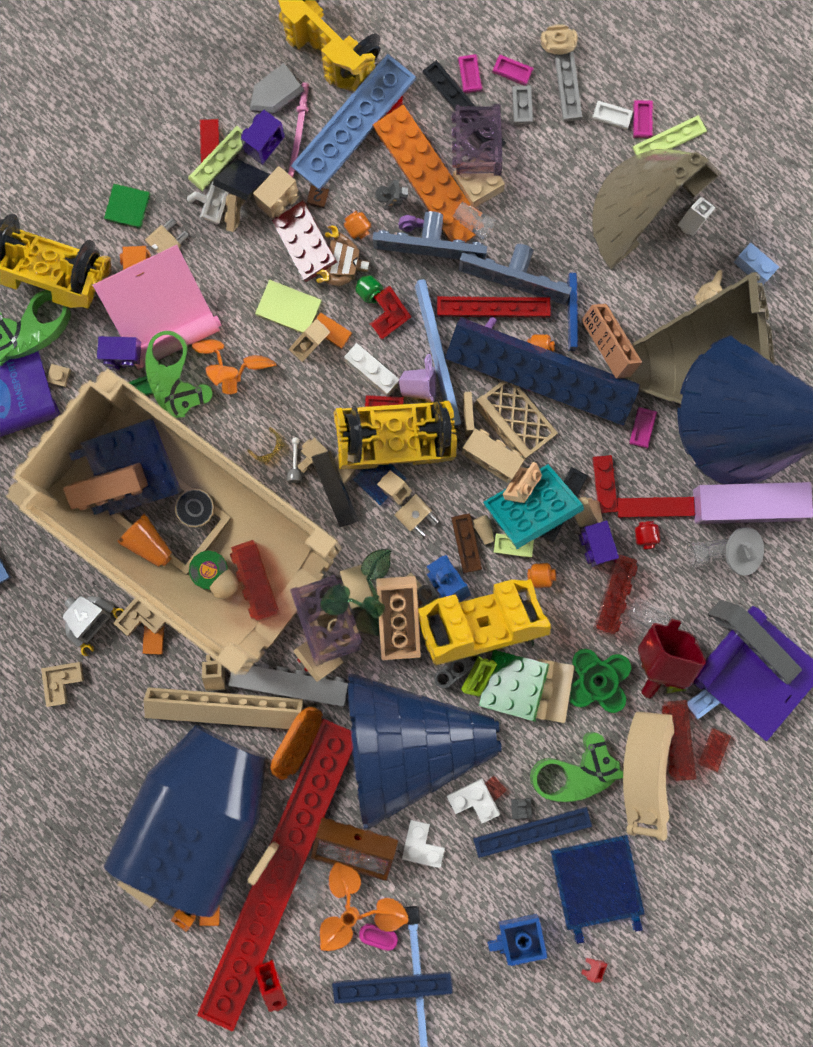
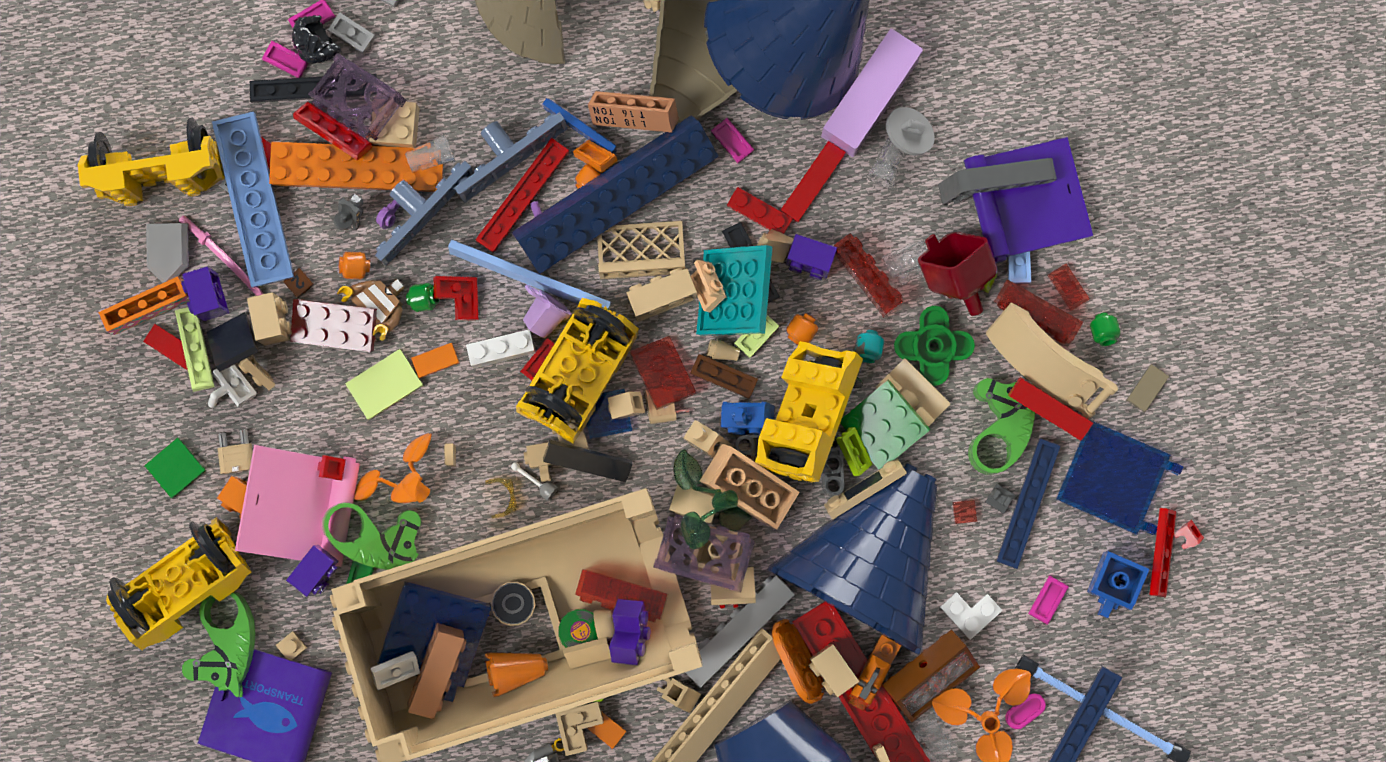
camera: 50 degrees left, 0 degrees up
(85, 457) = (395, 670): none -> white plate
(195, 586) = (587, 653): none -> tan tile
(201, 311) = (331, 467): none -> red tile
(222, 101) = (144, 306): none -> orange brick
(230, 606) = (630, 632): none -> dark purple brick
(270, 388) = (450, 455): none -> tan tile
(307, 774) = (834, 670): none -> tan brick
(309, 340) = (431, 386): tan slope -> none
(326, 805) = (874, 672): none -> orange plate
(410, 561) = (704, 439): none -> tan torso
(437, 497) = (662, 372): none -> clear red tile
(442, 141) = (332, 130): none -> red tile
(456, 703) = (841, 503): none -> tan plate
(468, 414) = (607, 289): tan tile -> none
(472, 897) = (1048, 600): none -> dark pink tile
(474, 795) = (961, 530): white plate -> none
(496, 81) = (312, 41): none -> black hair
(559, 337) = (595, 155): none -> orange tile
(564, 633) = (869, 346): none -> teal head
(567, 959) = (1162, 552): none -> red tile
(614, 799) = (1050, 408): none -> red tile
(647, 535) = (833, 207): red head -> none
(682, 861) = (1147, 388): none -> dark tan tile
(702, 799) = (1105, 329): none -> green head

